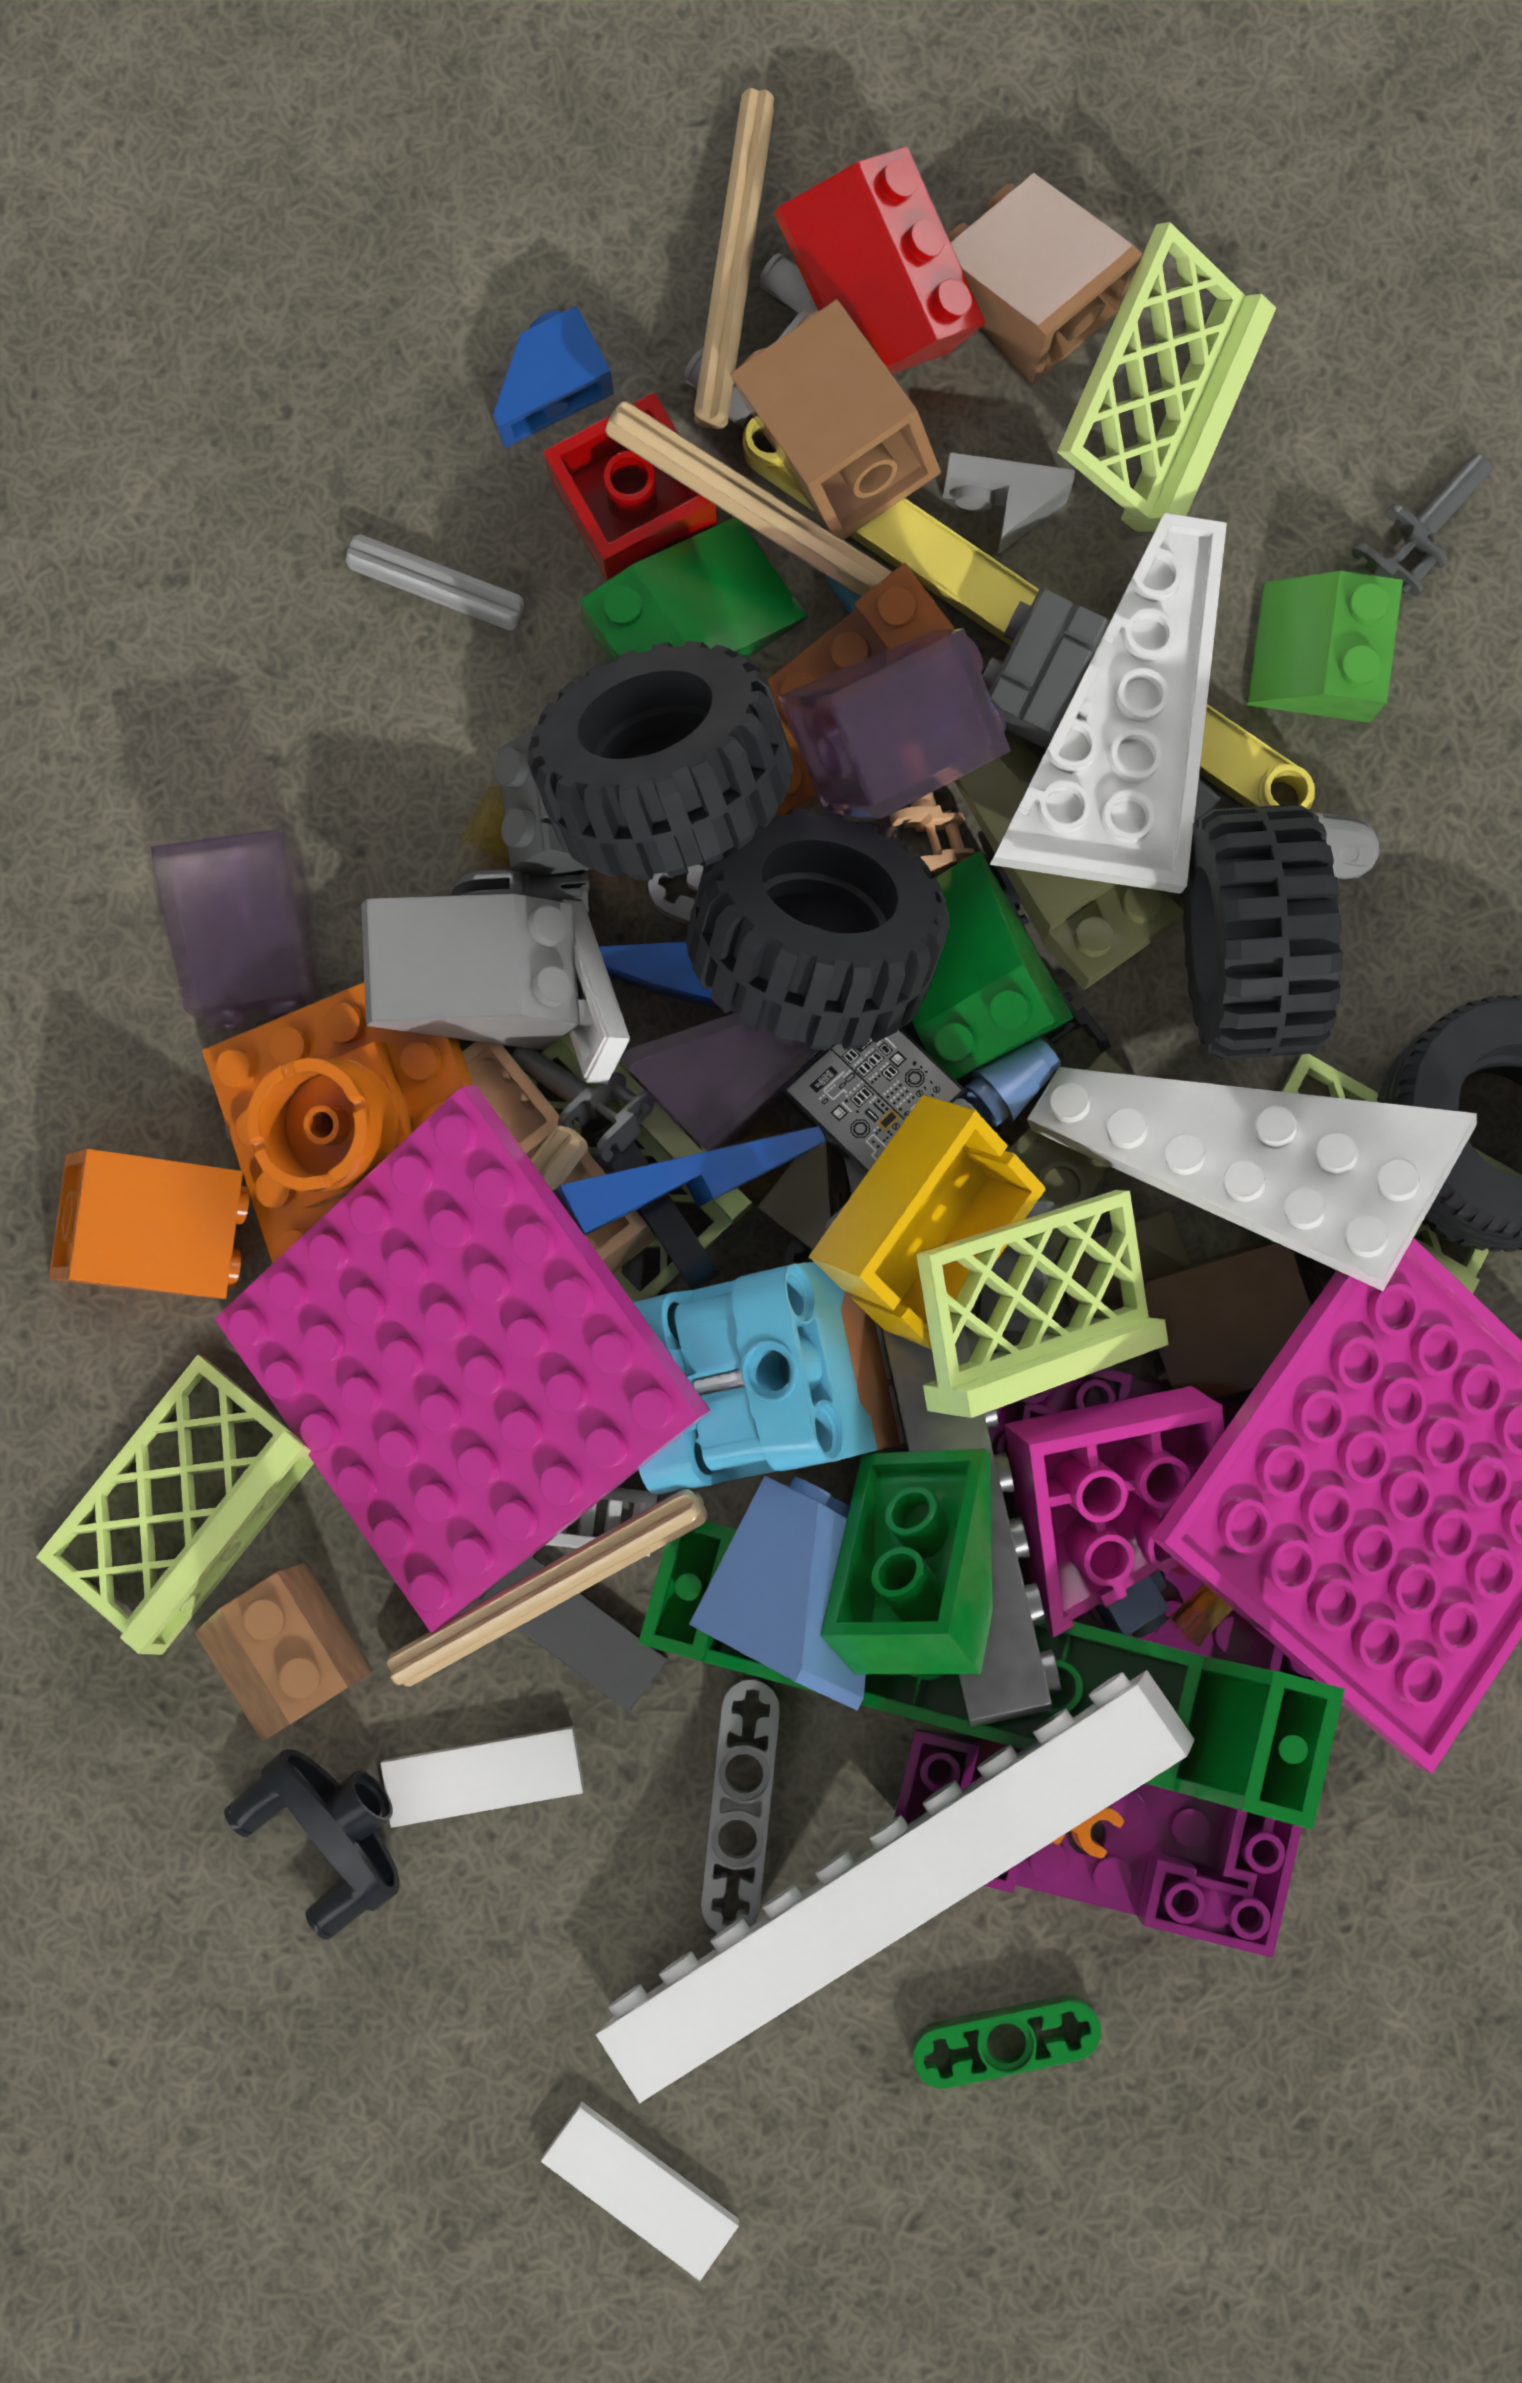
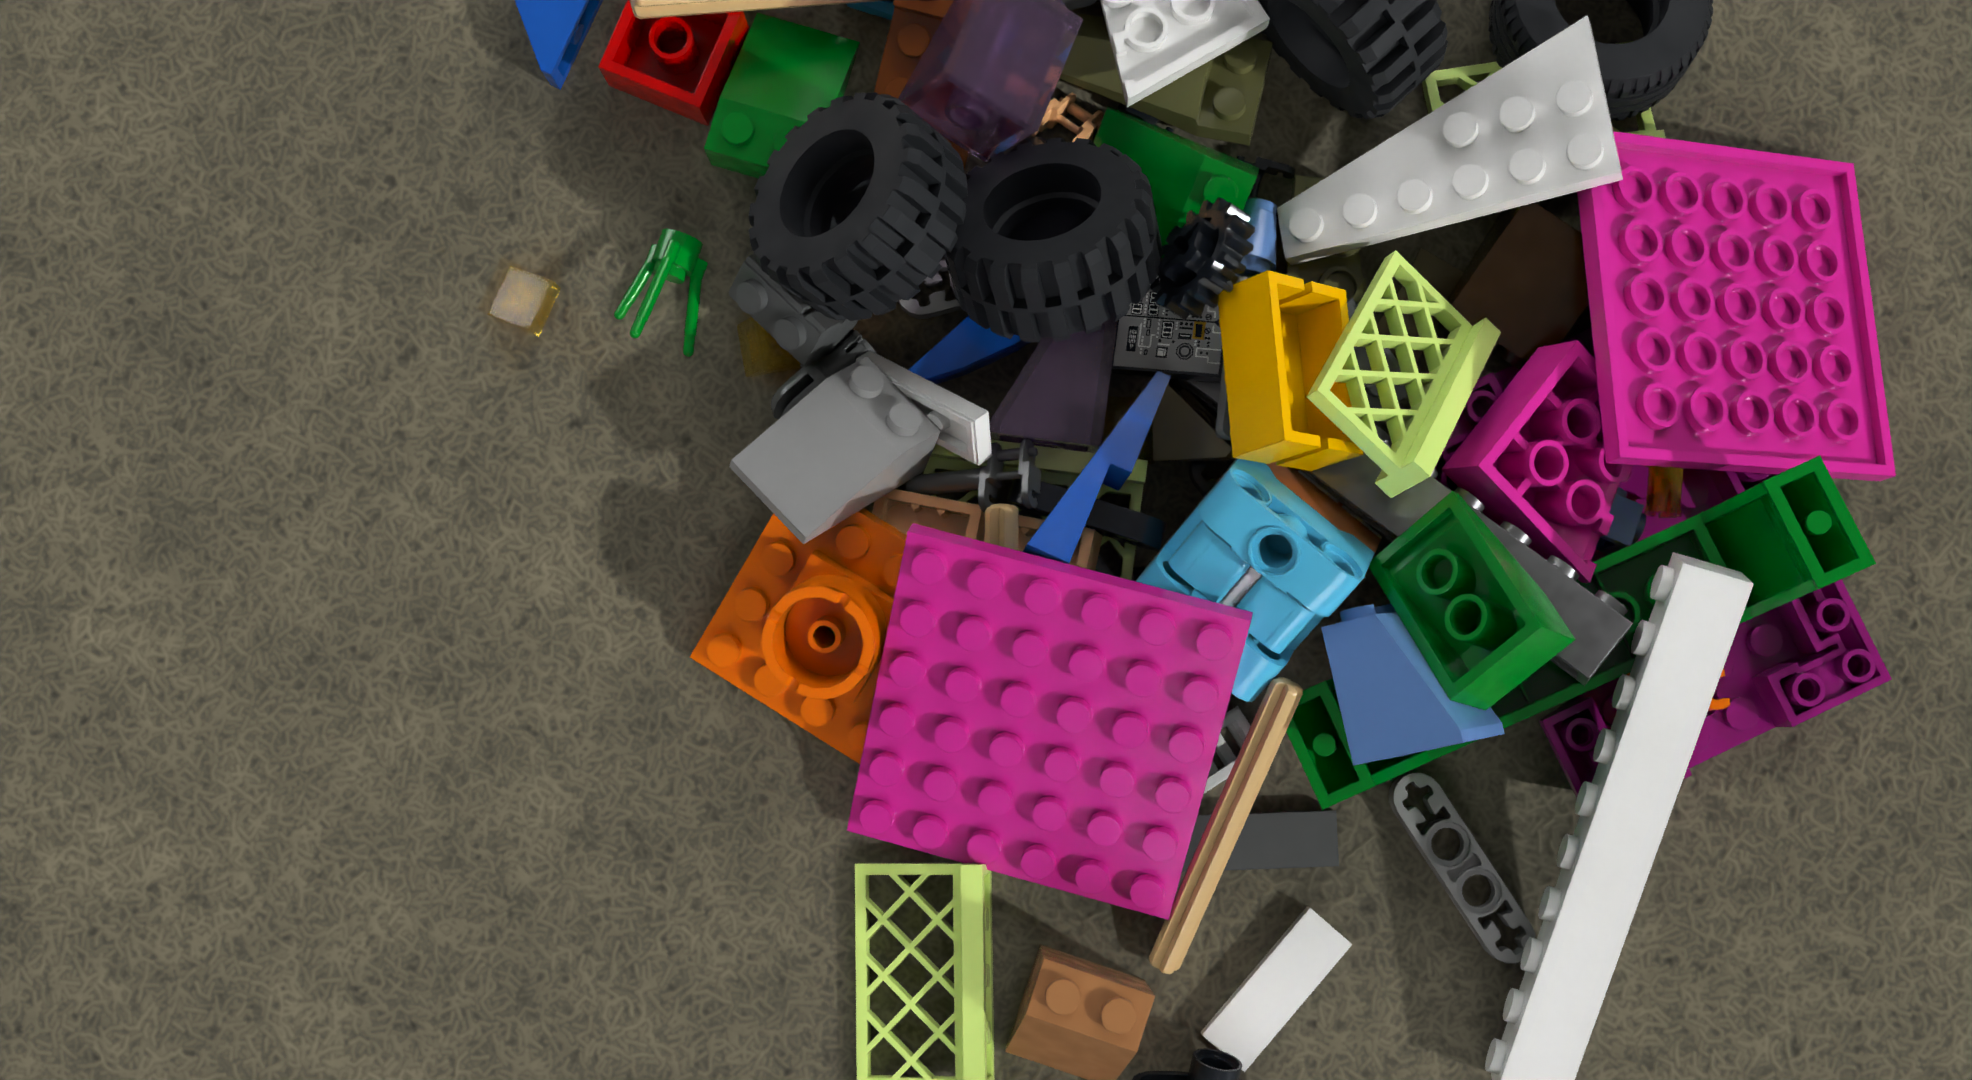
camera: 45 degrees left, 0 degrees up
(148, 1224) = (750, 804): orange slope -> none
(239, 925) = (650, 552): clear purple slope -> none
(316, 613) = (524, 300): none -> clear yellow slope
(434, 582) = (588, 216): light grey axle -> none
(477, 680) = (669, 260): none -> green plant
(936, 1055) = (1203, 258): none -> black gear
(993, 2067) = (1782, 878): green beam -> none

